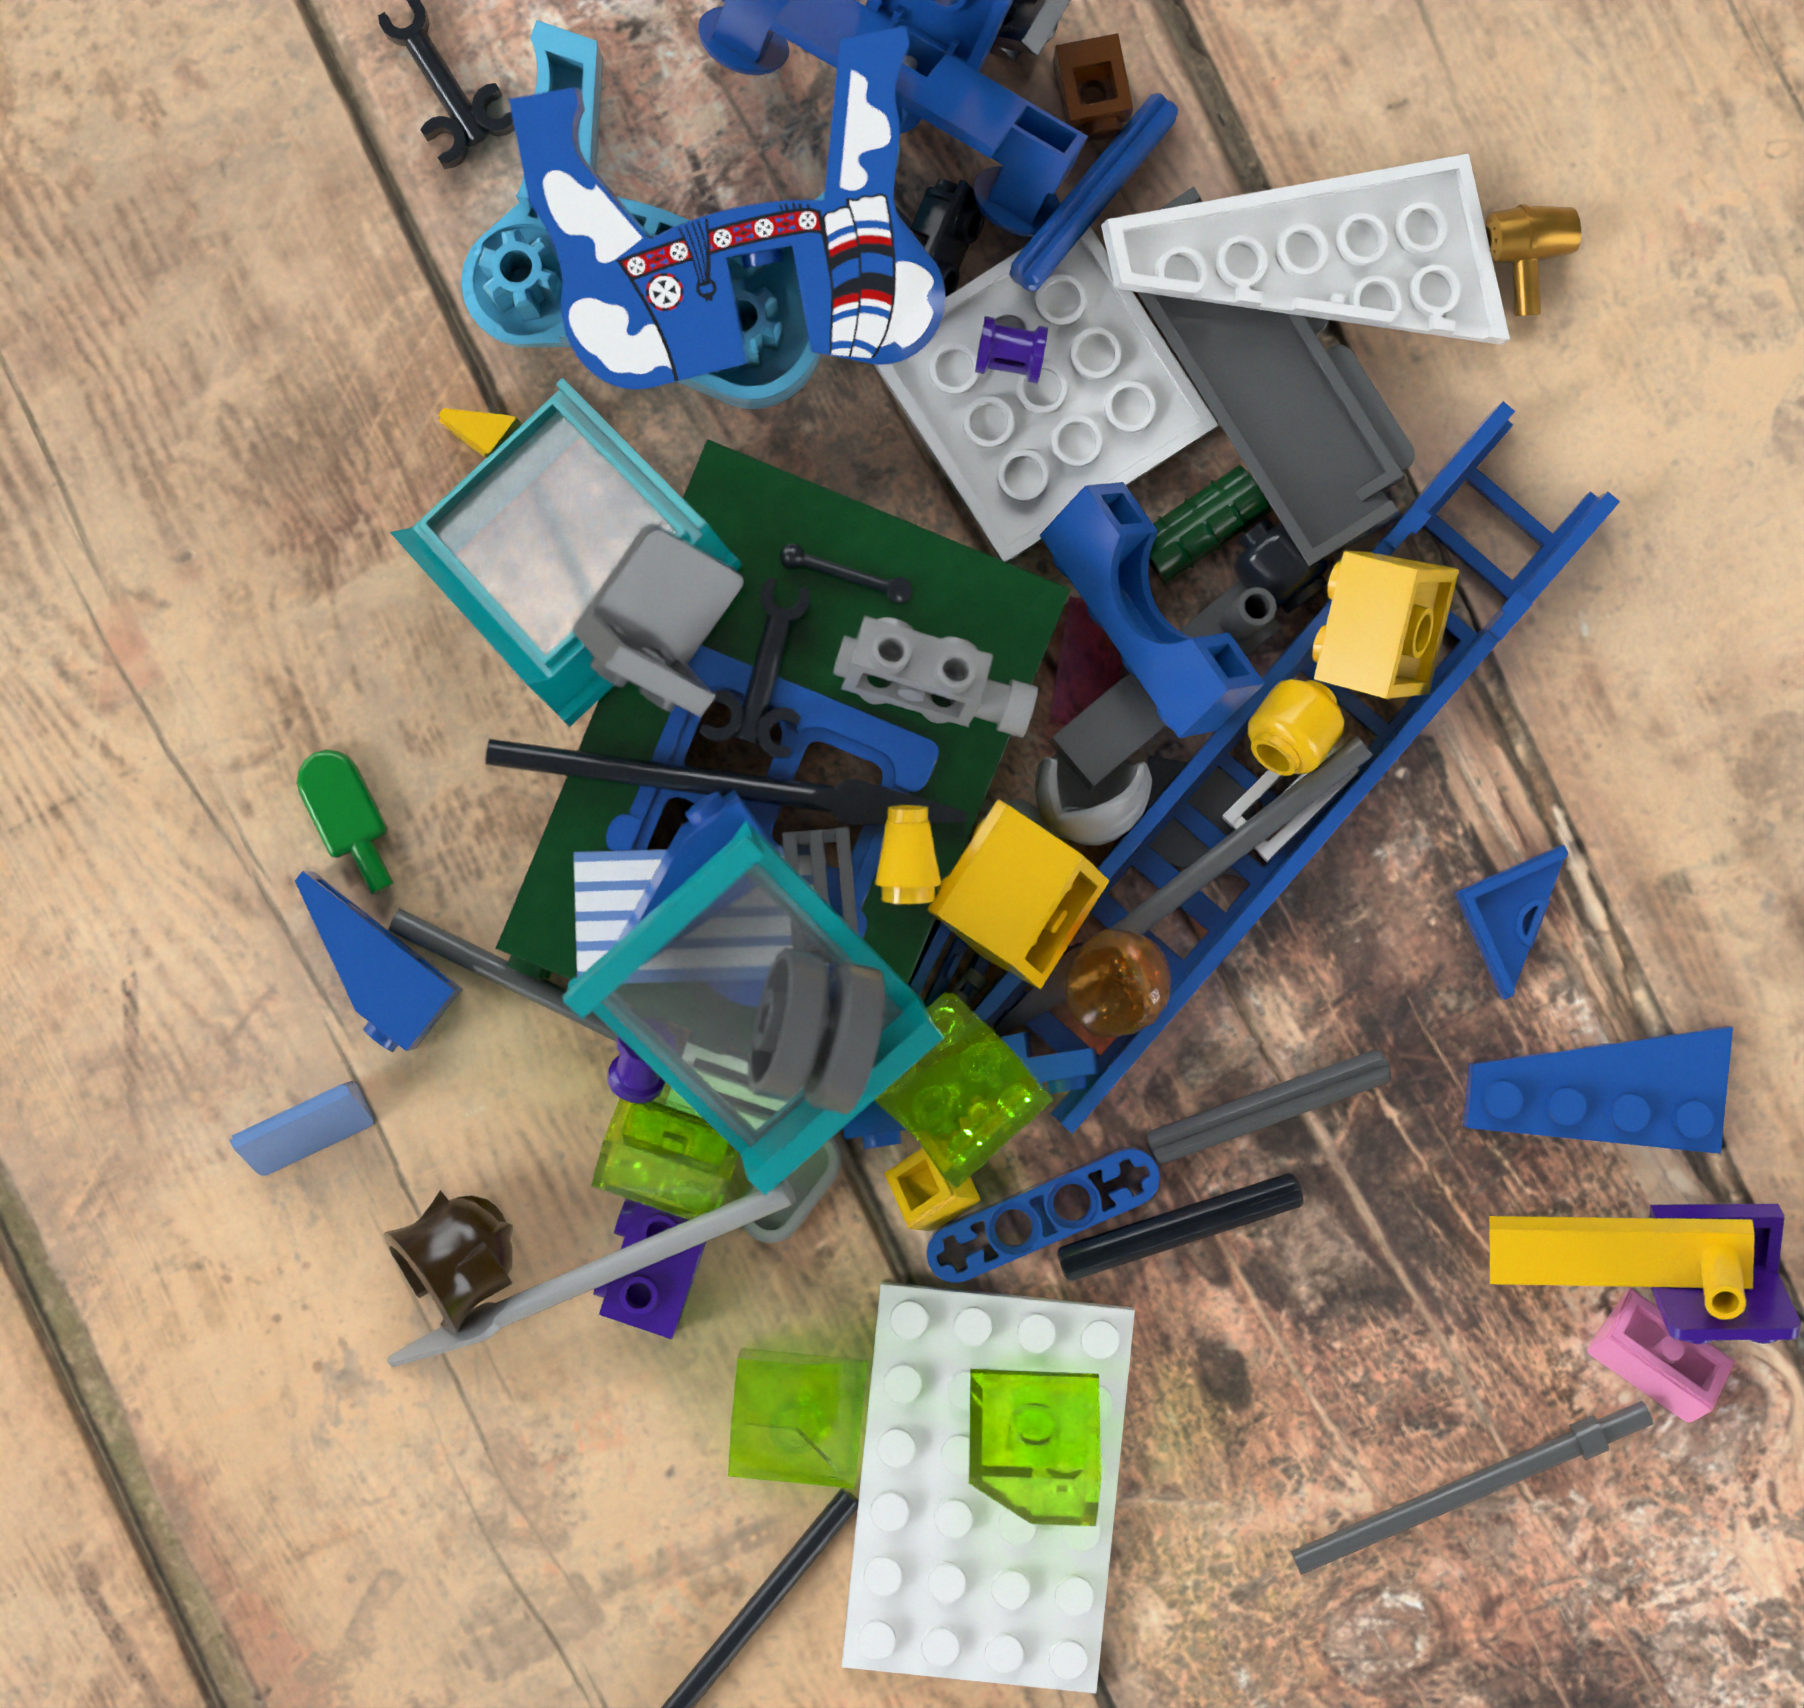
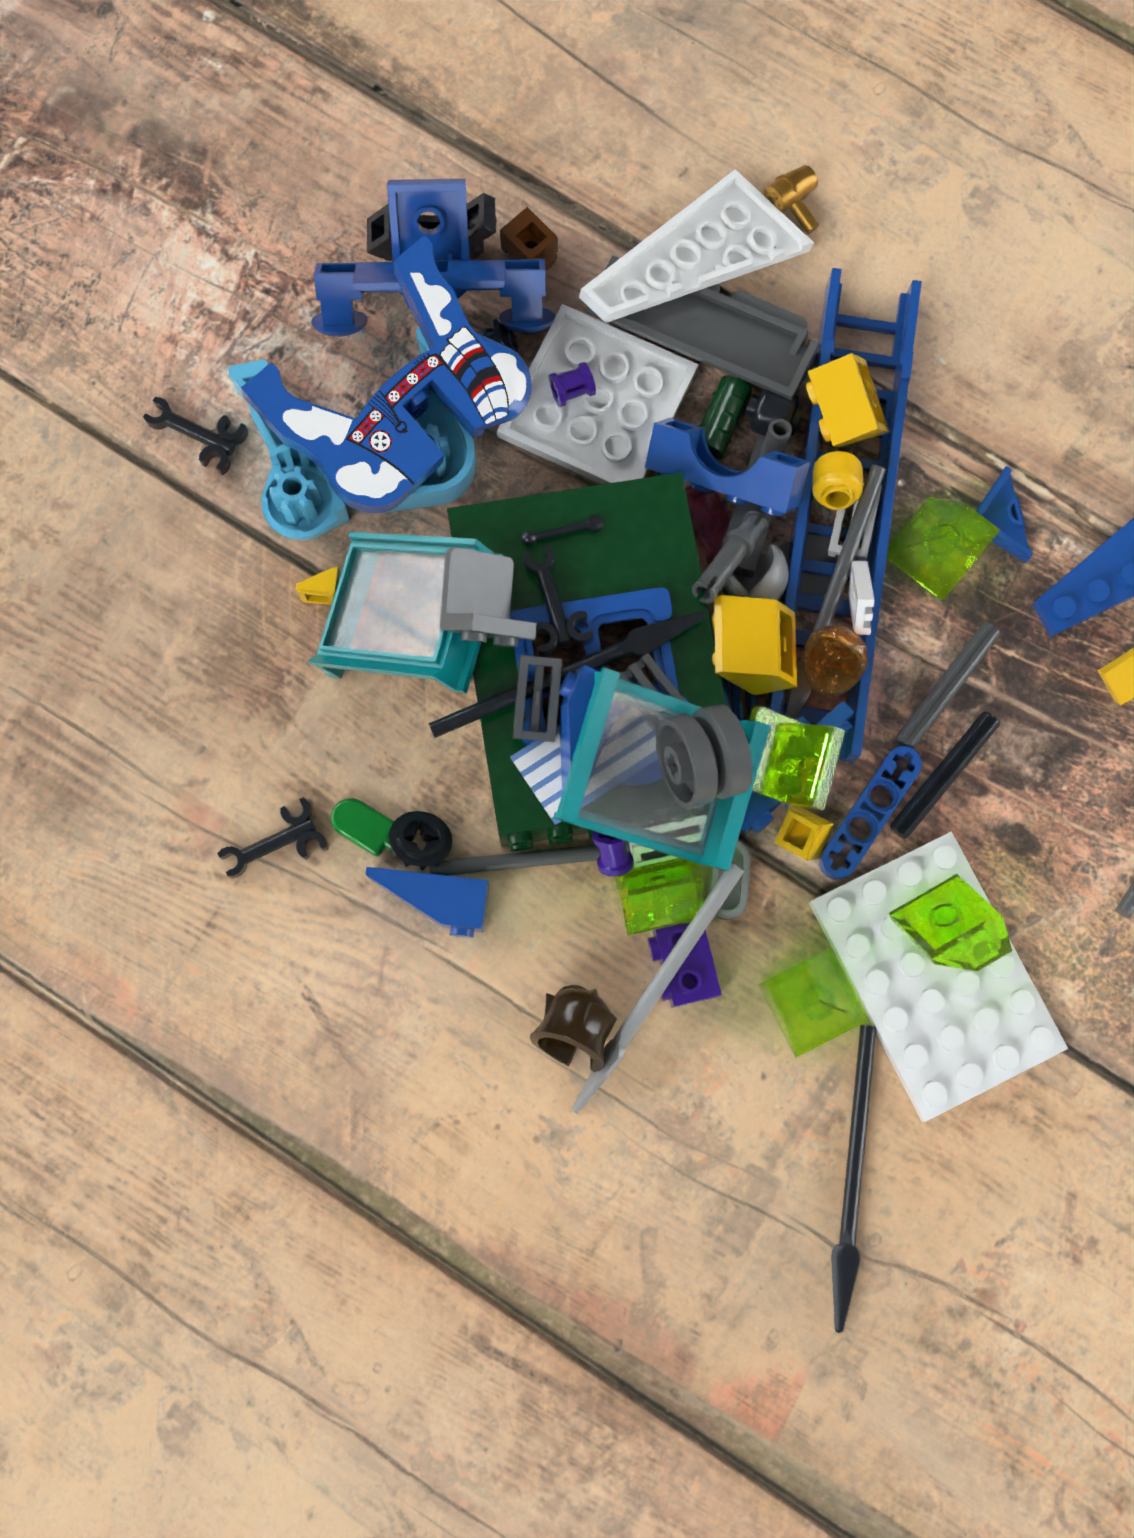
camera: 30 degrees left, 10 degrees down
(252, 757) = (301, 830): none -> black bar
(304, 1129) = (450, 1010): medium blue slope -> none
(428, 868) = (432, 830): none -> black gear
(688, 753) = (533, 733): none -> dark grey tile
(908, 857) = (688, 649): yellow cone -> none
(925, 666) = (633, 547): light grey brick -> none
(1085, 740) = (736, 546): none -> dark grey pin
(1093, 192) = (563, 290): blue axle -> none
(1211, 919) = (861, 597): none -> white tile
(1390, 901) = (941, 544): none -> clear neon green slope

